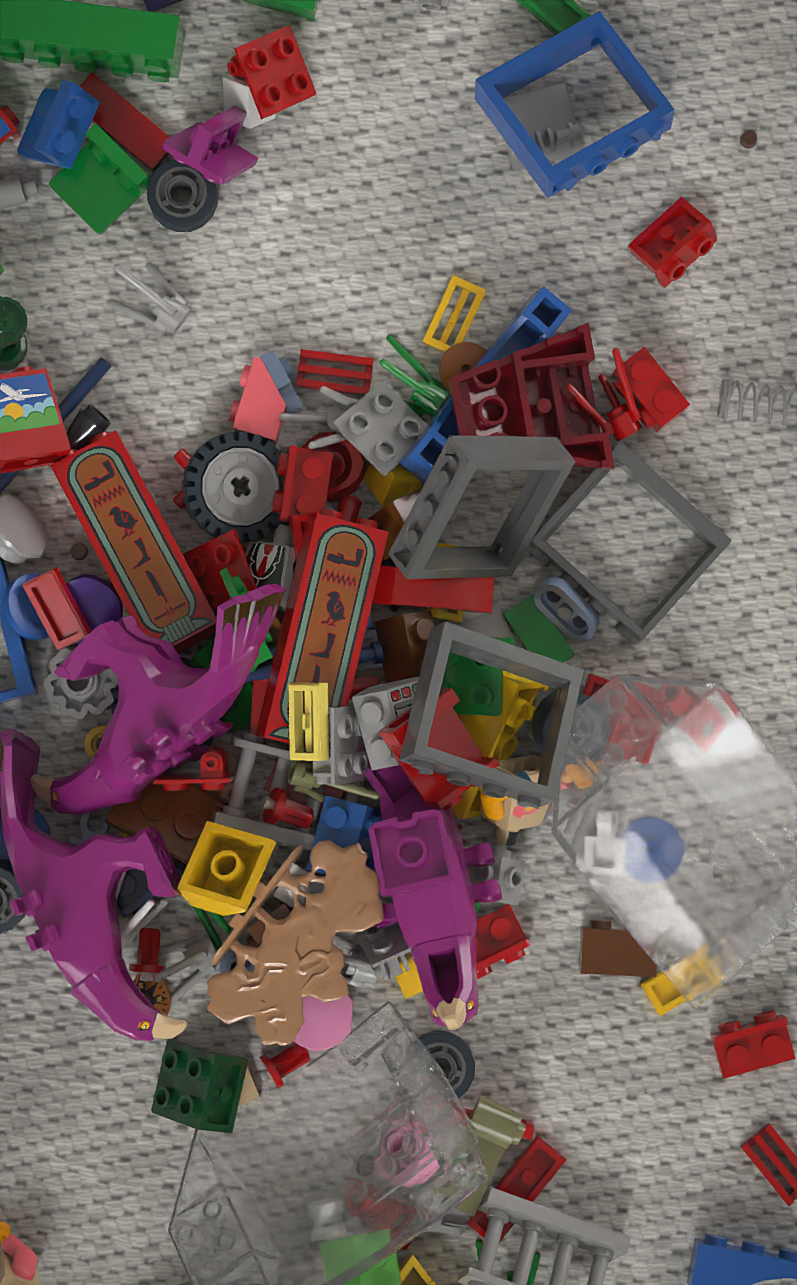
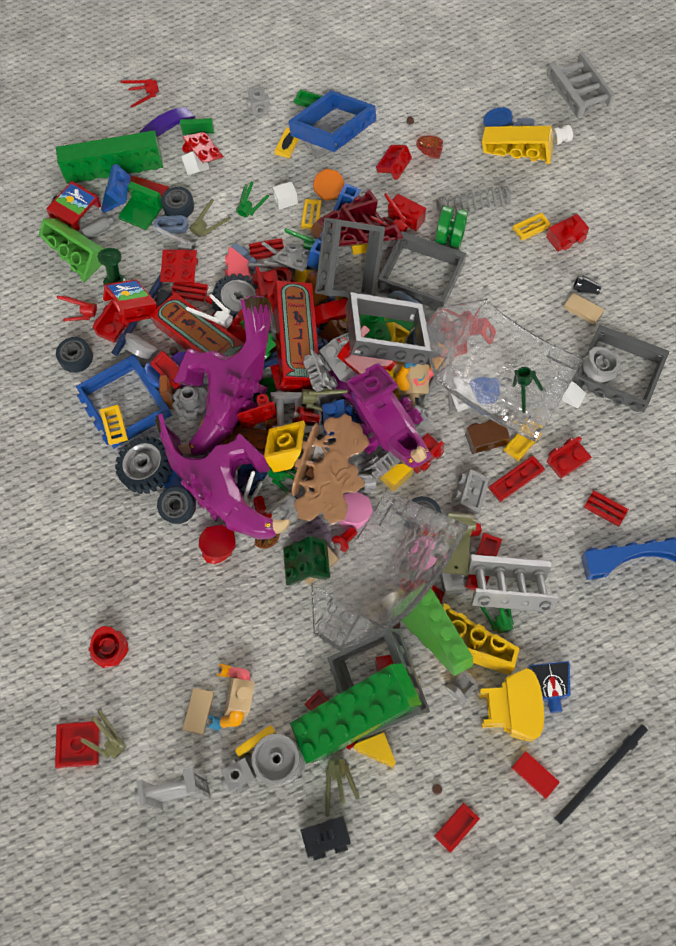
camera: 10 degrees left, 20 degrees down
(37, 657) = (166, 391): none -> dark orange tile
(45, 997) = (217, 544): none -> red hat
(121, 403) = (196, 288): none -> red tile
(141, 359) = (178, 266): none -> red hinge
(155, 244) = (172, 224): none -> sand blue plate
(189, 533) = (222, 317): none -> white plant
(209, 265) = (199, 226): none -> olive plant
(212, 147) = (184, 176): magenta bracket -> none
(216, 1036) = (312, 528): none -> piece
(314, 721) = (304, 360): light yellow tile -> none
(320, 253) = (245, 206): none -> green plant
(413, 254) = (285, 195): none -> white panel
(459, 112) = (286, 144): none -> yellow tile
(512, 262) = (328, 184): none -> orange hat
(543, 1050) = (470, 491): none -> light grey bracket
(640, 1050) = (516, 478): none -> red tile
(721, 888) = (524, 377): none -> dark green plant
(725, 468) = (451, 227): none -> green wheel
(762, 234) = (430, 146): none -> clear red rock

